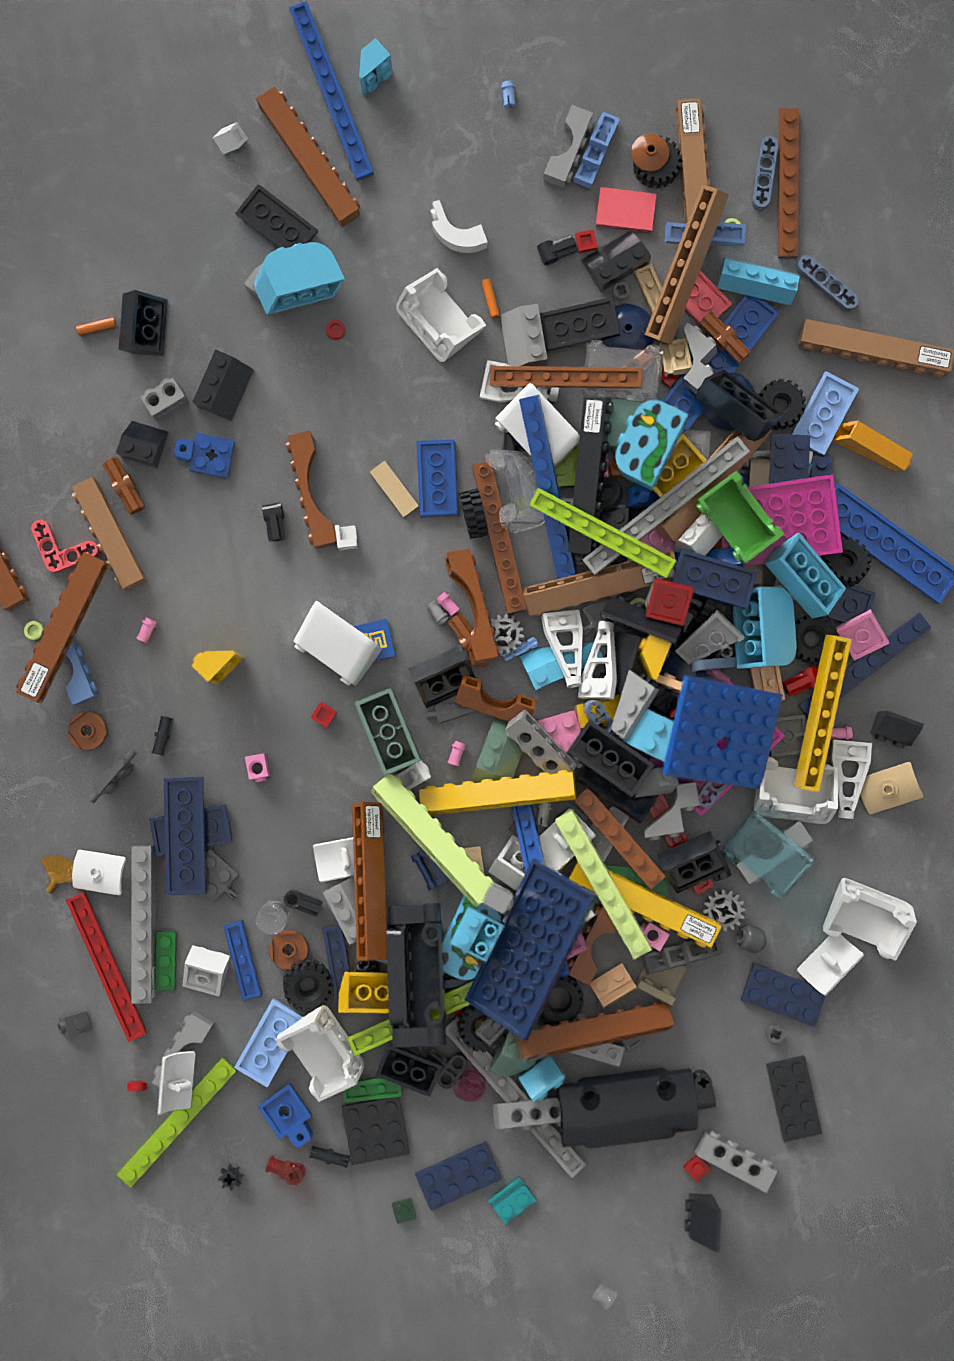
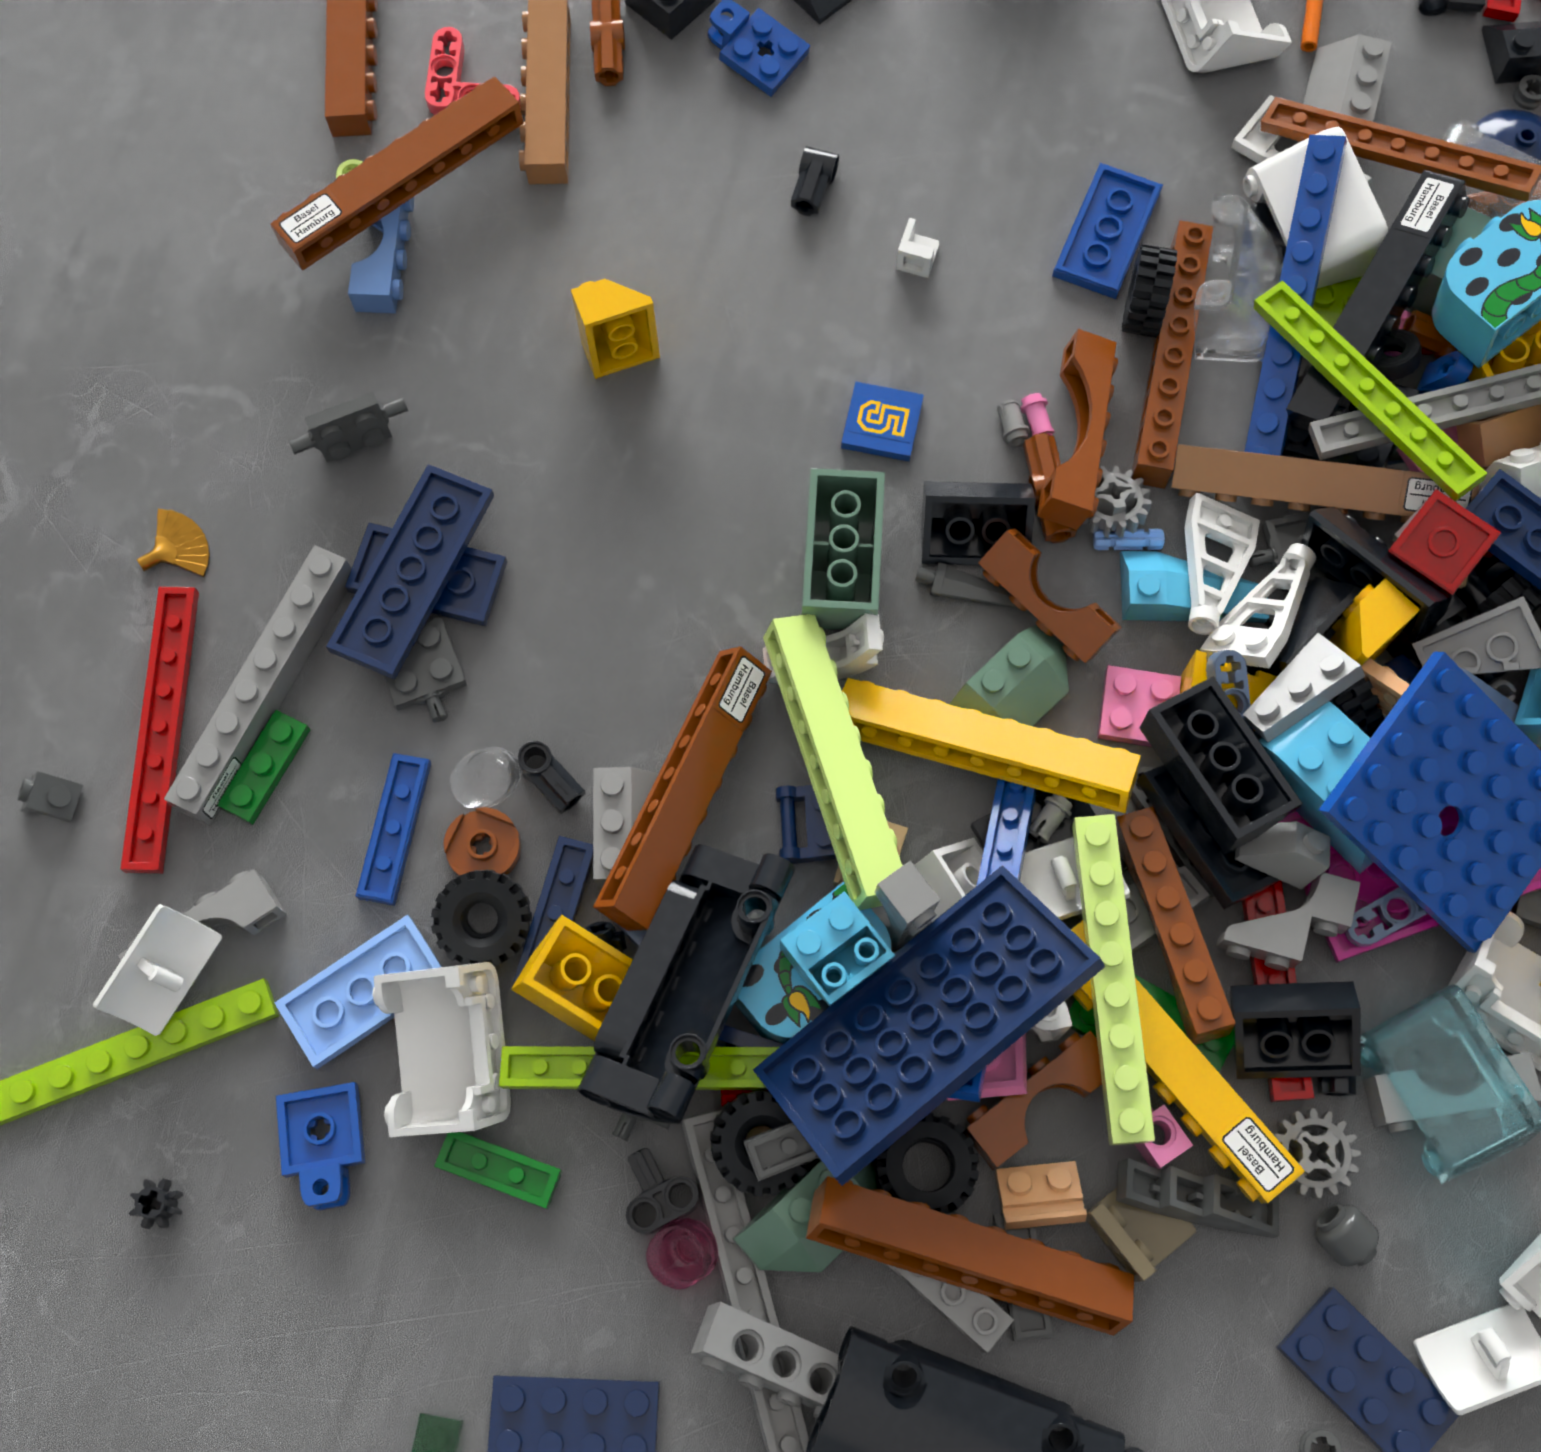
camera: 25 degrees right, 15 degrees down
(98, 733) = (349, 368): dark orange plate -> none
(98, 872) = (236, 566): white shield -> none
(137, 1086) = (90, 953): red tile -> none
(146, 630) = (527, 246): bright pink pin -> none
(162, 735) = (462, 409): black pin -> none
(205, 970) = (320, 812): white slope -> none
(251, 761) = (591, 510): bright pink brick -> none
(286, 1170) = (261, 1241): clear red connector -> none
(303, 453) = (910, 107): dark orange arch -> none
(324, 714) = (744, 494): red plate -> none
(329, 1156) = (354, 1258): black pin -> none
(334, 859) = (641, 730): white shield -> none
(336, 644) = (827, 387): white windscreen -> none
(375, 1130) = (464, 1252): black plate -> none
(394, 489) = (1030, 216): tan tile -> none
(409, 1069) = (586, 1157): black slope -> none
(456, 753) = (940, 655): bright pink pin -> none
(539, 737) = (1101, 679): light grey brick -> none
(542, 1077) = (827, 1299): medium azure slope -> none
(579, 324) = (1434, 99): black plate -> none

